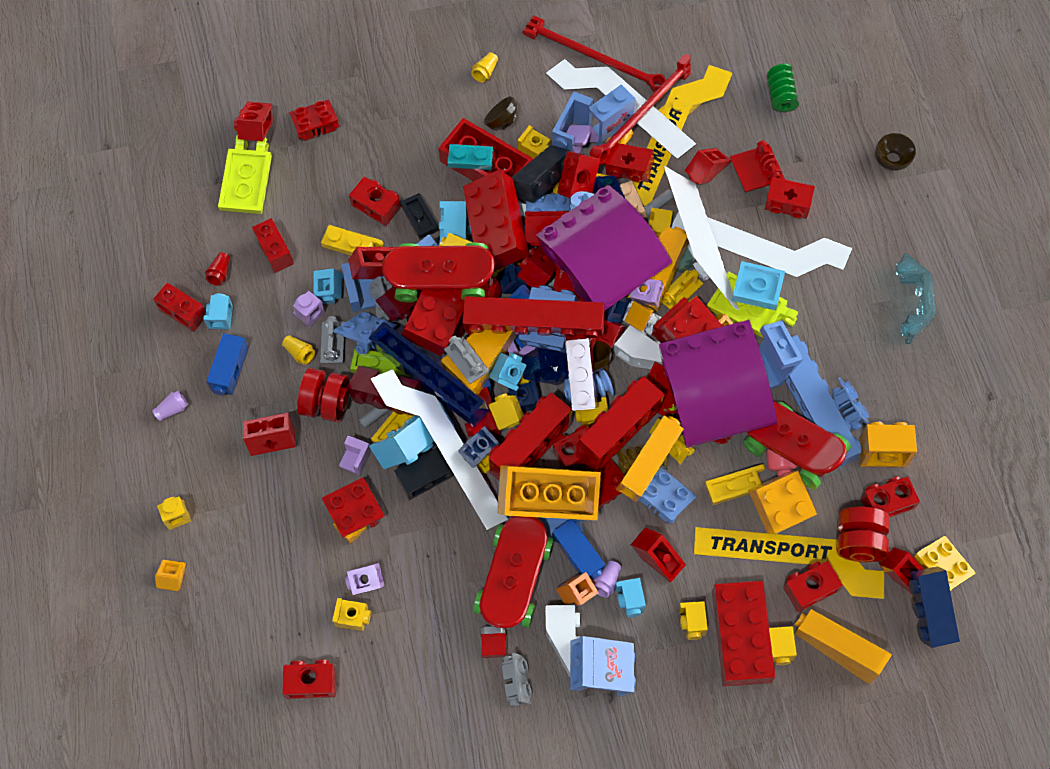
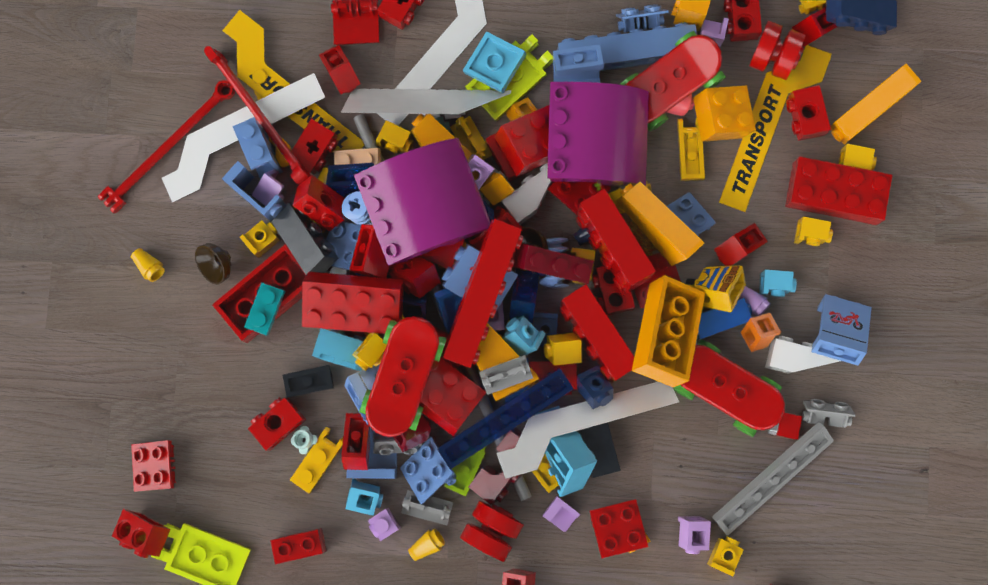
camera: 70 degrees left, 15 degrees up
(366, 226) = (297, 439): none -> light aqua plate
(437, 641) = (773, 478): none -> light grey plate
(609, 539) = (721, 286): none -> yellow torso
(860, 475) = (715, 30): none -> lavender panel

